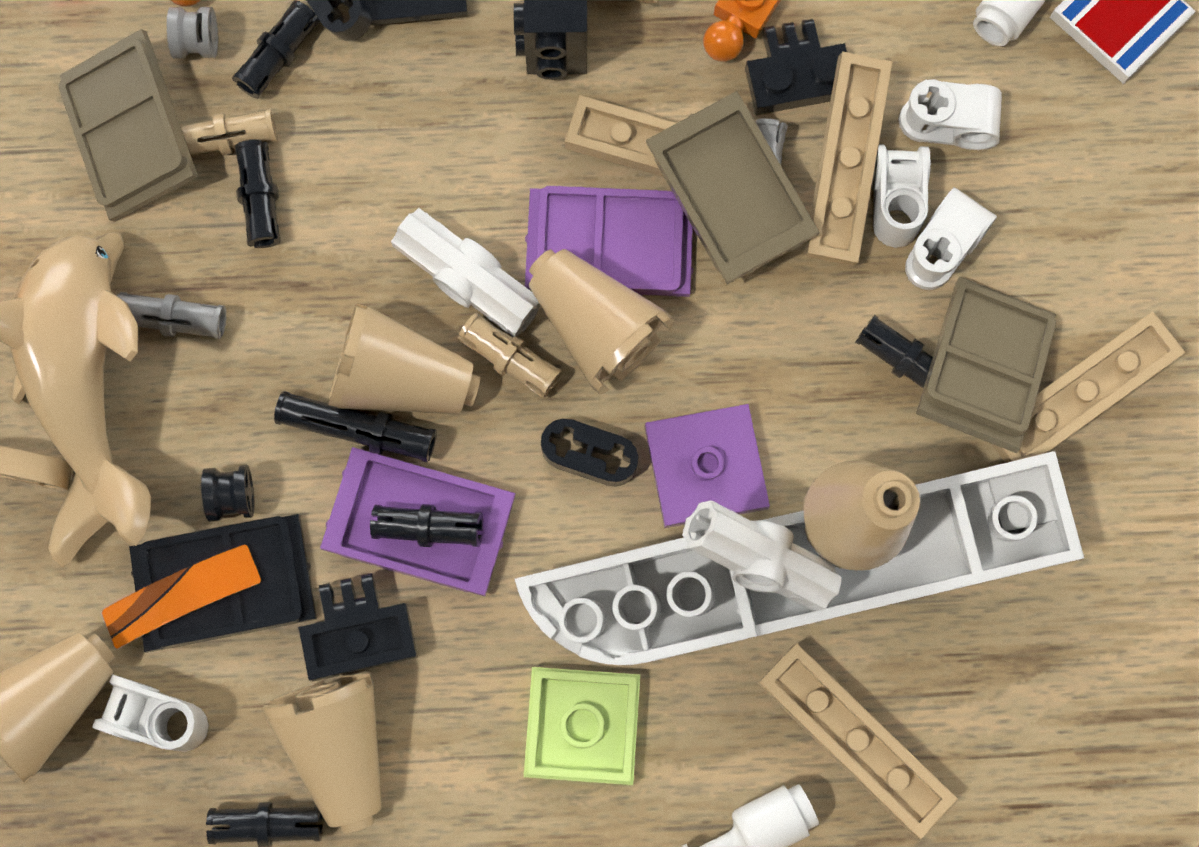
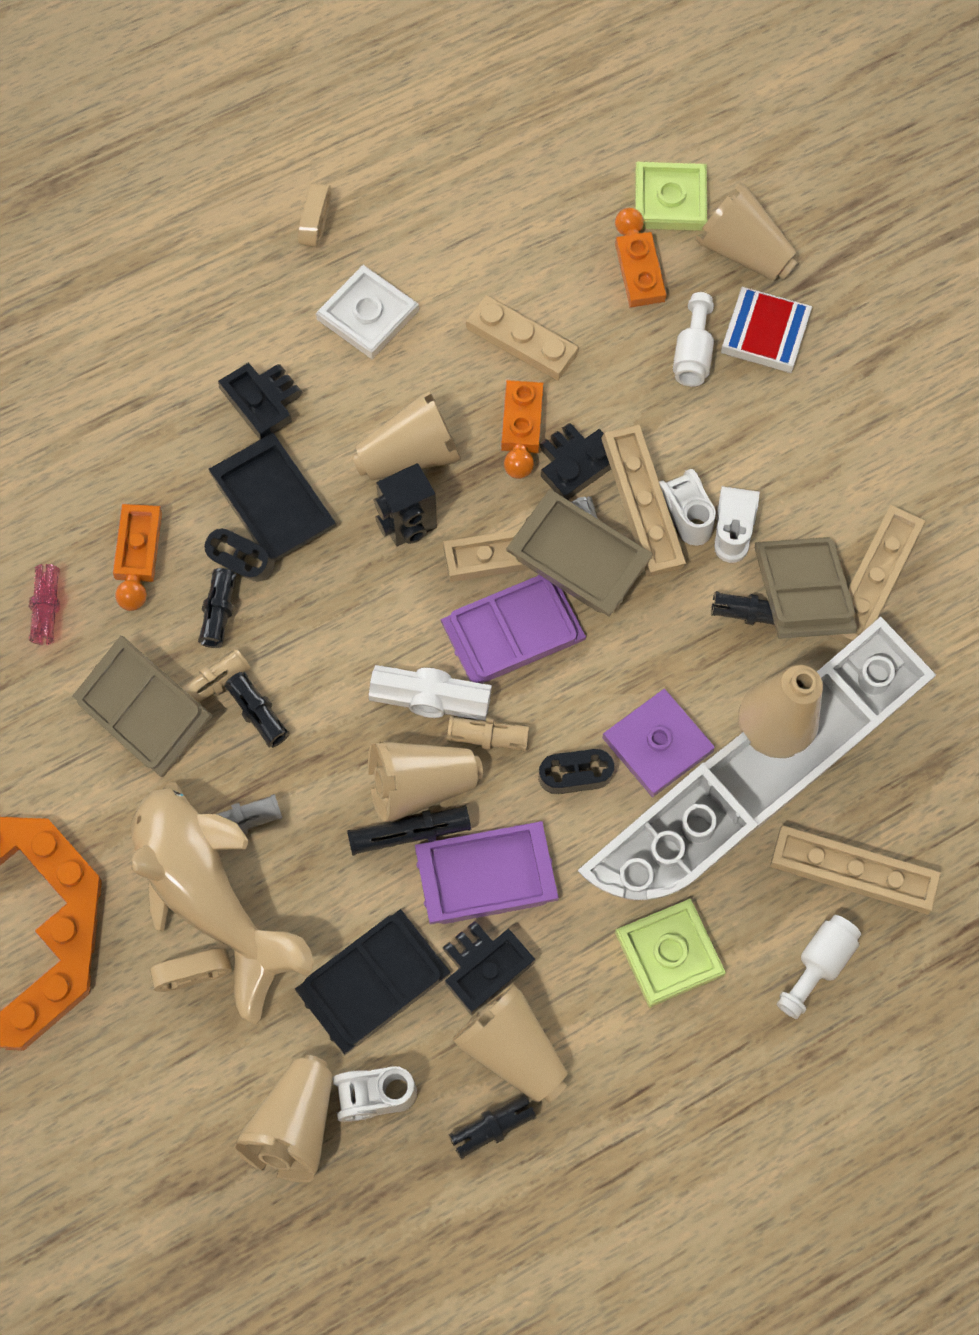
camera: 25 degrees left, 10 degrees down
(180, 594) = (349, 1002): orange sticker -> none
(192, 32) = (150, 624): light grey wheel -> none
(227, 493) = (346, 916): black wheel -> none
(426, 525) = (495, 870): black pin -> none
(596, 316) = (535, 677): tan cone -> none
(761, 556) = (734, 769): white piece -> none
(954, 114) = (696, 439): white piece -> none

